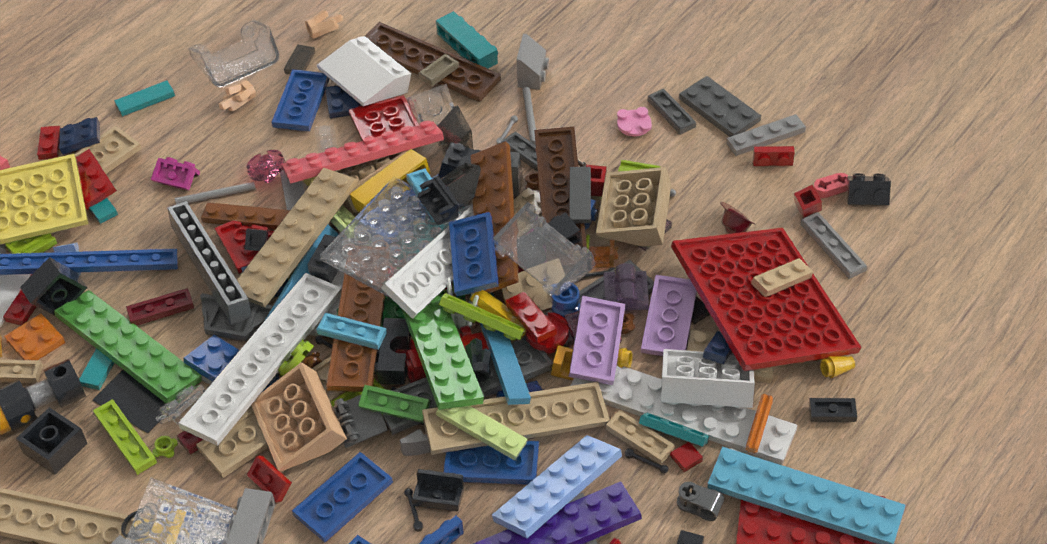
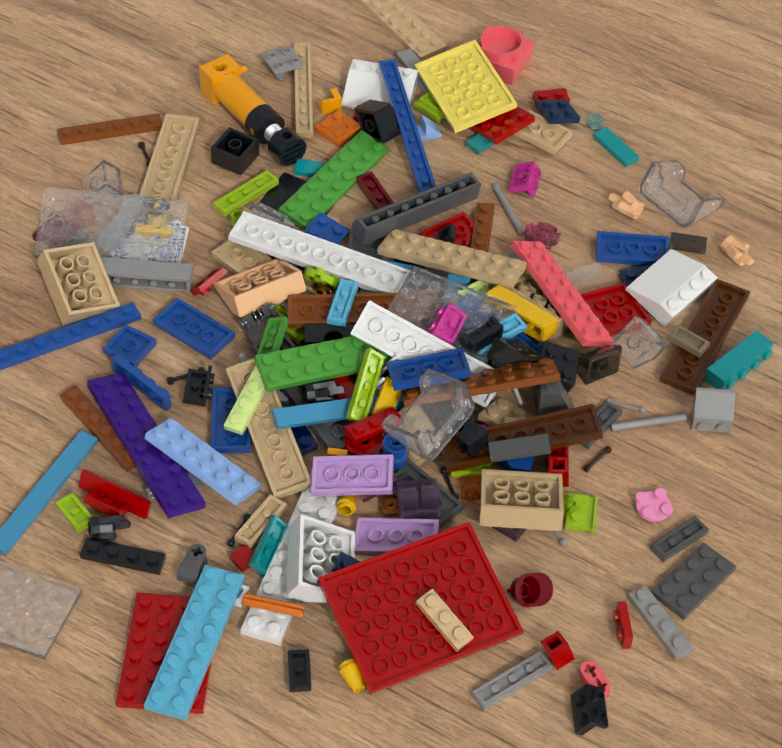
camera: 80 degrees right, 0 degrees up
(101, 109) = (594, 121): none -> clear light blue plate
(412, 232) = (448, 323): none -> dark pink bracket

